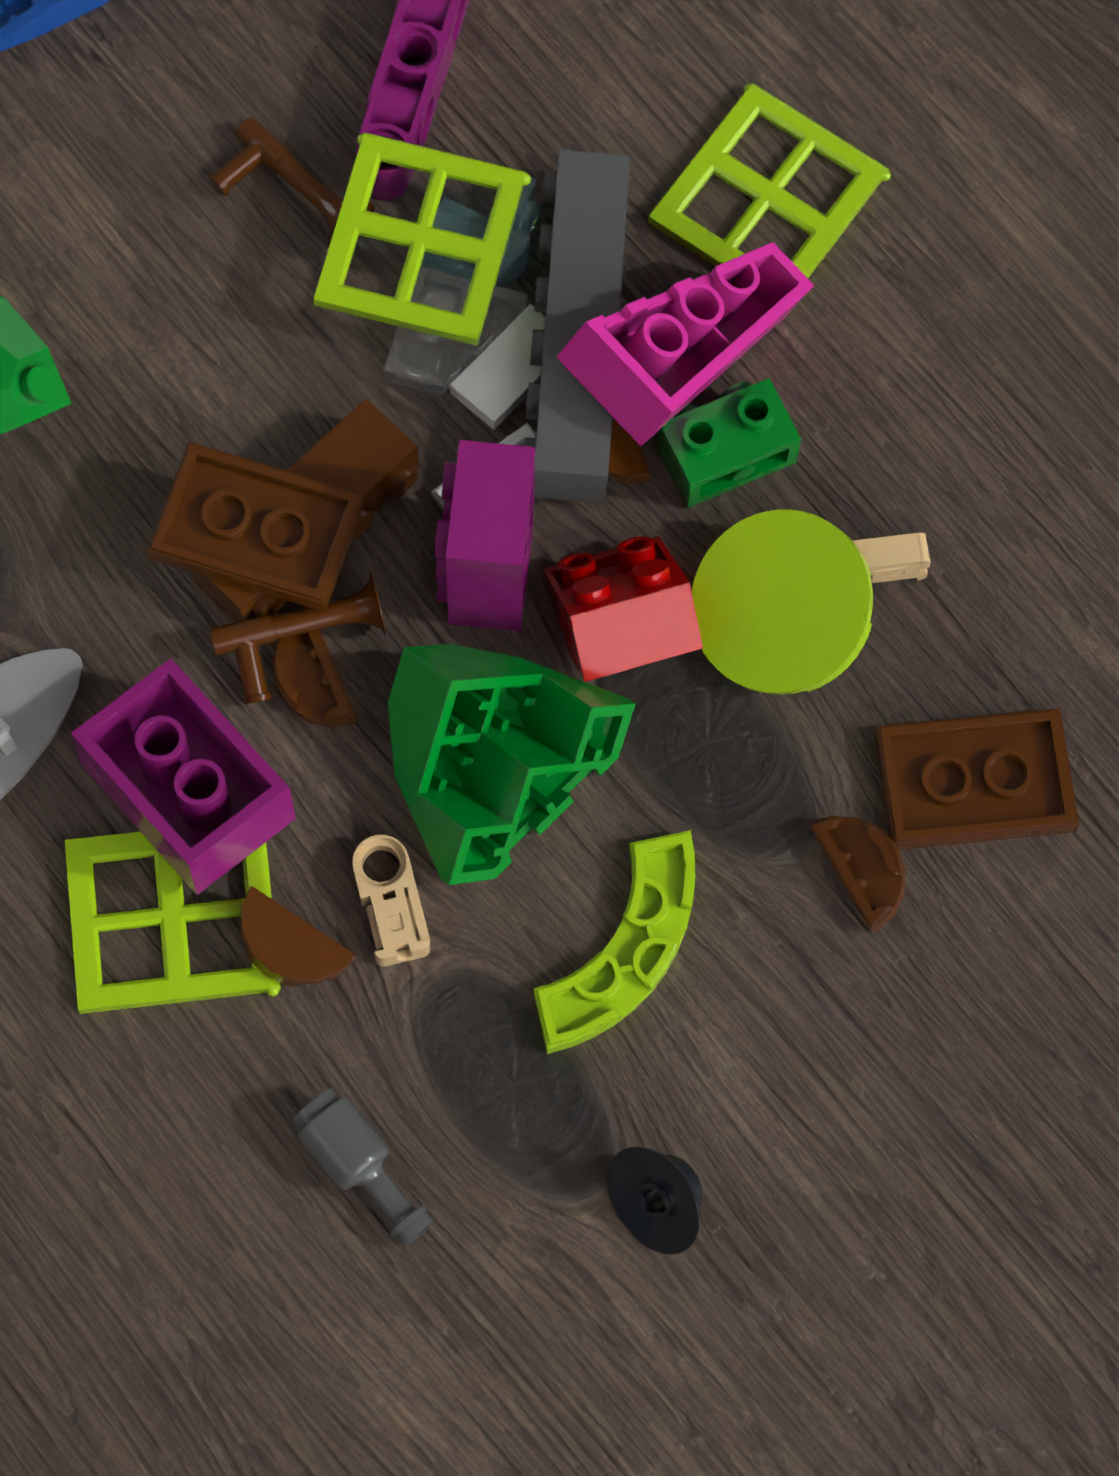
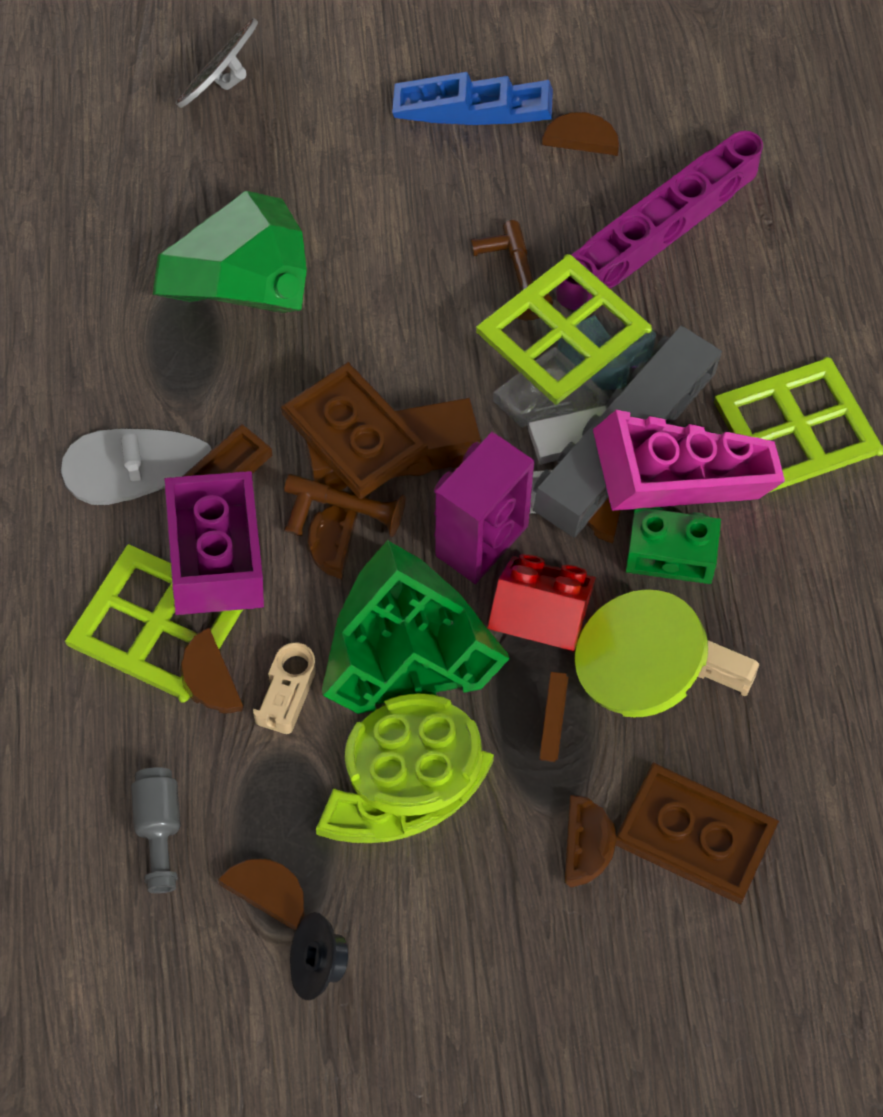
camera: 35 degrees right, 10 degrees down
(112, 655) = (236, 453): none -> reddish brown tile
(541, 1153) = (268, 888): none -> reddish brown tile
(601, 889) = (413, 755): none -> lime tile
(734, 746) = (553, 717): none -> reddish brown tile

